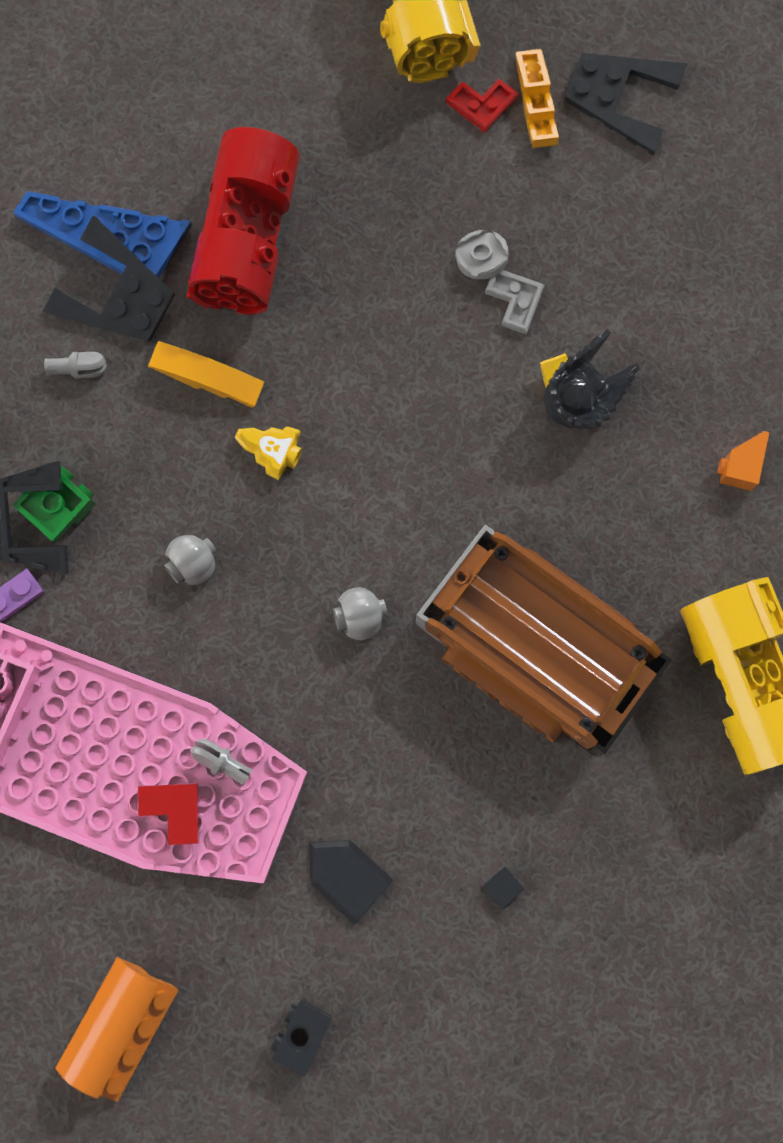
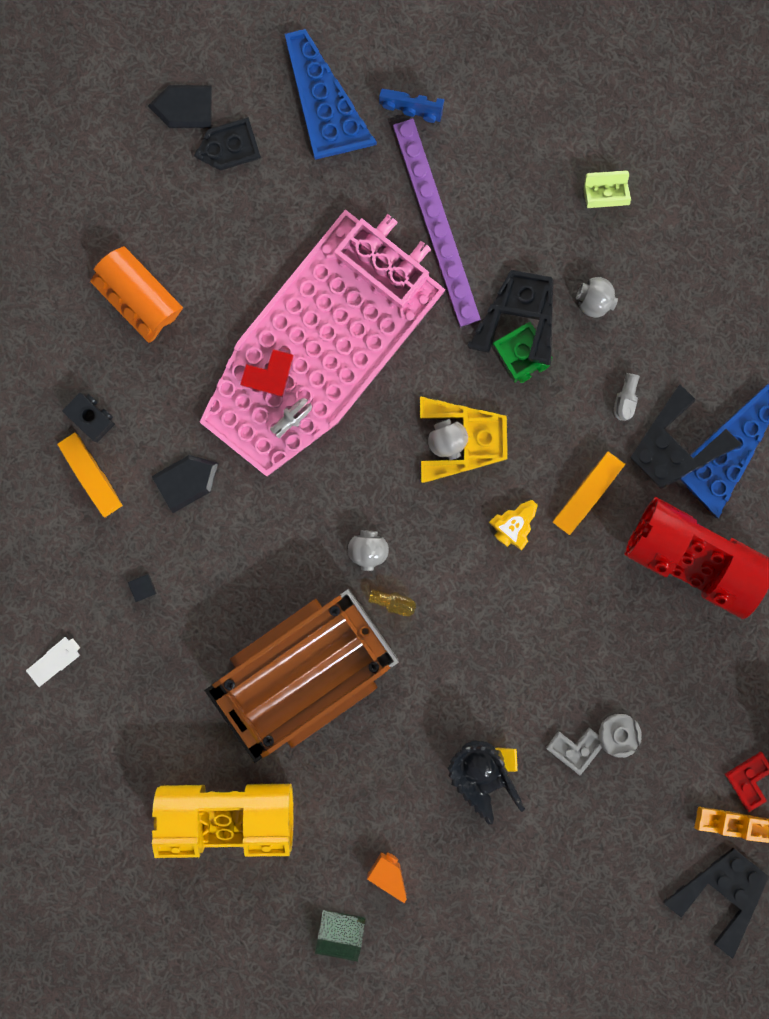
camera: 110 degrees right, 10 degrees up
(178, 513) = (485, 438): none -> yellow wing
(378, 1009) = (90, 475): none -> light orange slope
(414, 560) = (395, 603): none -> clear yellow arm
(638, 973) = (54, 661): none -> white piece

